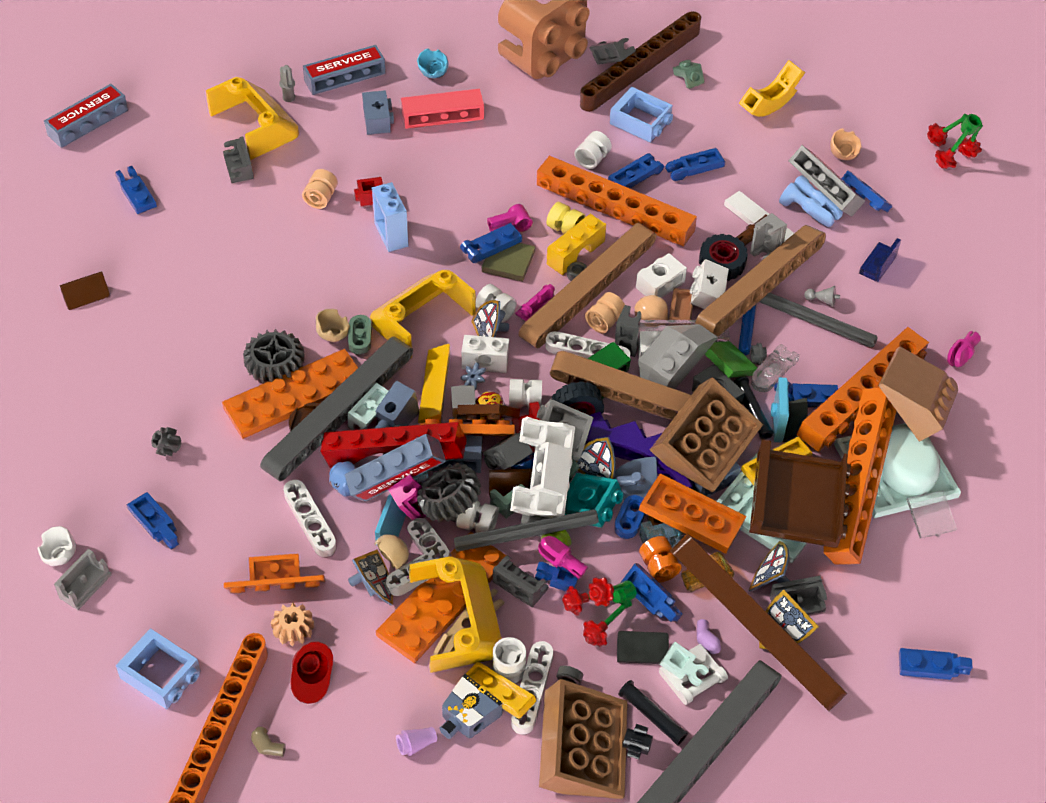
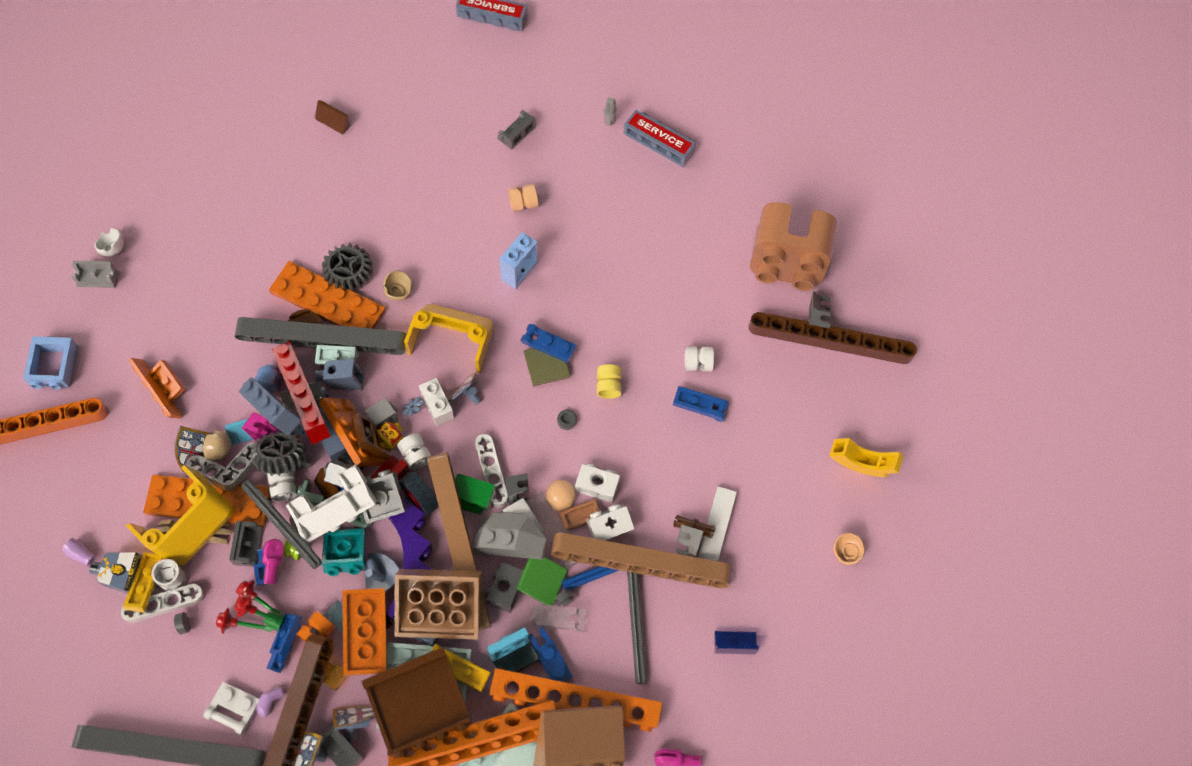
camera: 55 degrees right, 15 degrees up
(136, 191) = (445, 86): blue hinge -> none
(154, 519) = (166, 284): blue hinge -> none
(166, 441) = (231, 249): dark grey gear -> none
(265, 745) = (28, 461): dark tan arm -> none
(276, 125) = (570, 130): yellow windscreen -> none
(292, 624) = (123, 415): light nougat gear -> none
(310, 517) = (220, 374): white beam -> none
(311, 672) = (92, 454): red piece -> none
(359, 334) = (403, 309): sand green plate -> none
(364, 190) = (550, 235): red brick -> none
(376, 112) = (630, 186): sand blue brick -> none
(432, 63) = (709, 192): medium azure hair -> none
(434, 383) = (391, 385): yellow slope -> none
(442, 108) = (668, 227): coral brick -> none
(491, 292) = (489, 381): white wheel -> none
(516, 215) = (587, 345): dark pink piece -> none
(535, 303) = (511, 411): dark pink hinge -> none
(583, 742) = (131, 664): medium nougat slope -> none
(586, 234) = (601, 403): yellow arch -> none
(587, 285) = (556, 434): medium nougat beam -> none
(598, 459) = (378, 538): shield -> none
(605, 312) = (532, 463): light nougat wheel -> none
(616, 200) = (656, 342): orange brick -> none
(629, 518) = (344, 584): blue plate -> none
(637, 741) = (148, 699): black gear -> none
(642, 647) = (235, 660): pearl dark grey slope -> none
(647, 103) = (768, 354): light blue window -> none
(653, 712) = (182, 697): black pin -> none
(680, 662) = (224, 693): light aqua plate -> none
(691, 72) = (846, 382): sand green bracket -> none
(695, 164) = (744, 443): blue hinge -> none
(725, 251) = (658, 507): black wheel -> none
(752, 405) = (509, 621): black pin -> none
(816, 203) = (762, 562): light blue piece -> none
(826, 181) = (791, 555): light grey brick -> none
(826, 295) = (665, 622): light grey piece -> none
(865, 190) = (807, 594): blue hinge -> none
(968, 147) = (925, 646): red plant -> none

